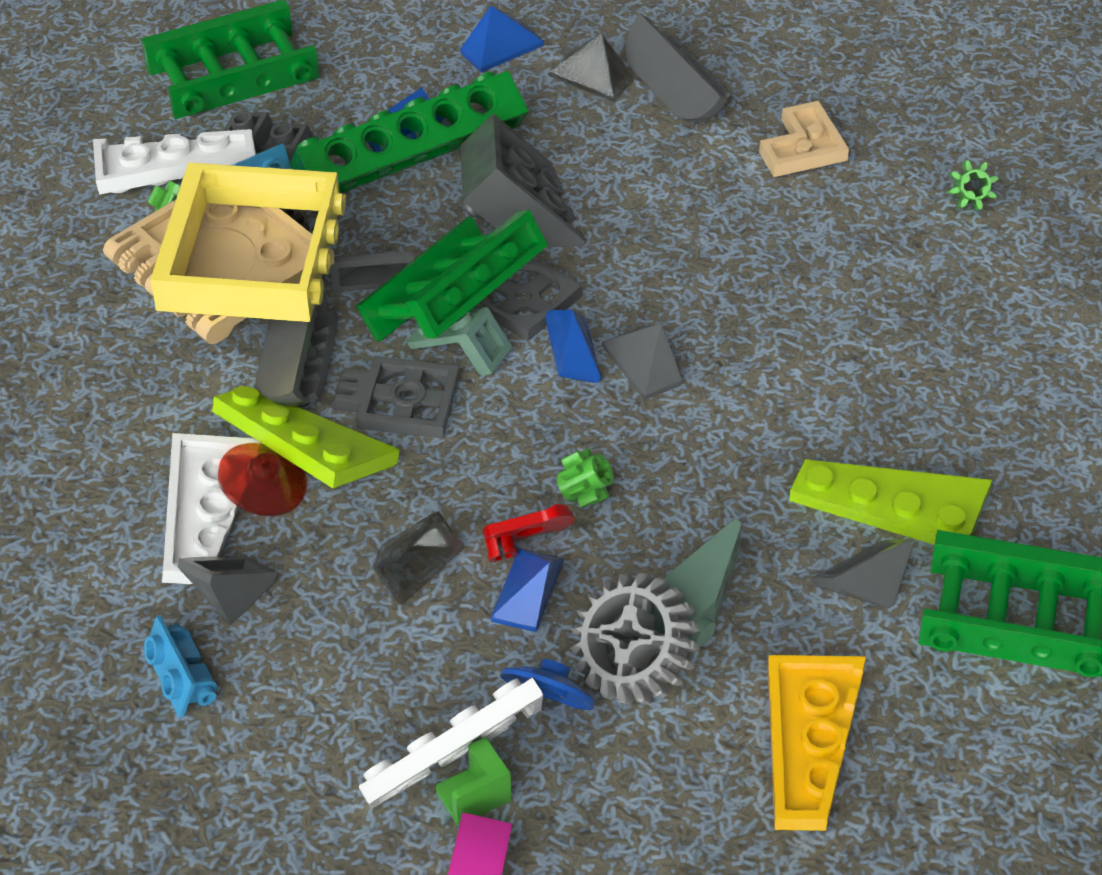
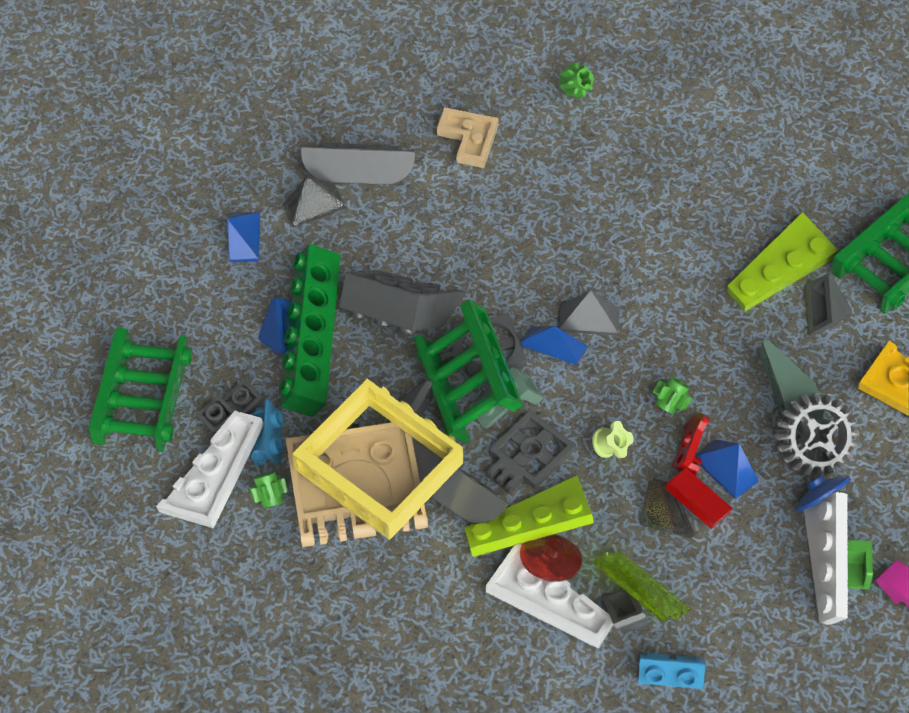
camera: 55 degrees left, 10 degrees up
(273, 577) = (641, 586): none -> clear neon green piece
(452, 575) = (698, 498): none -> red tile
(479, 462) = (612, 441): none -> yellowish green brick

